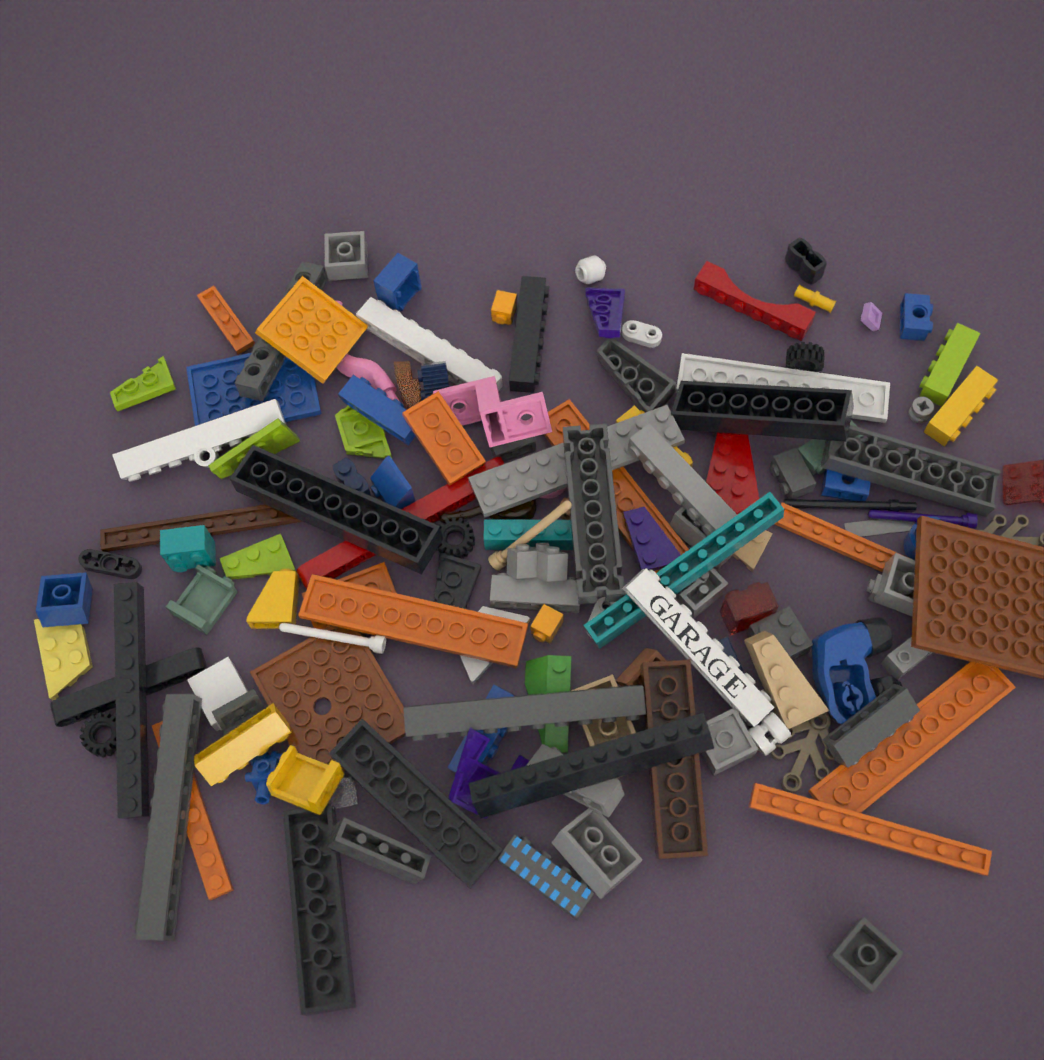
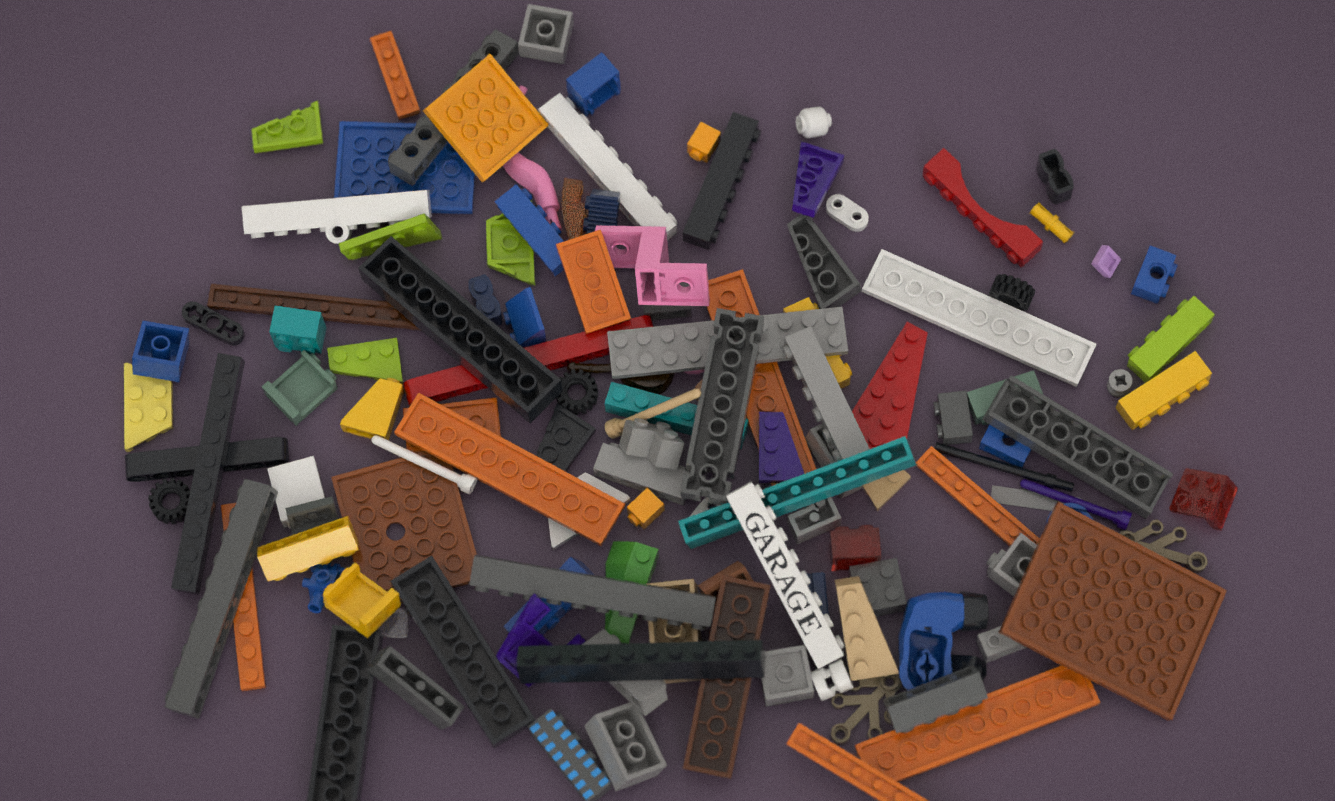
camera: 15 degrees right, 5 degrees up
(764, 410) = (938, 342): black brick -> none

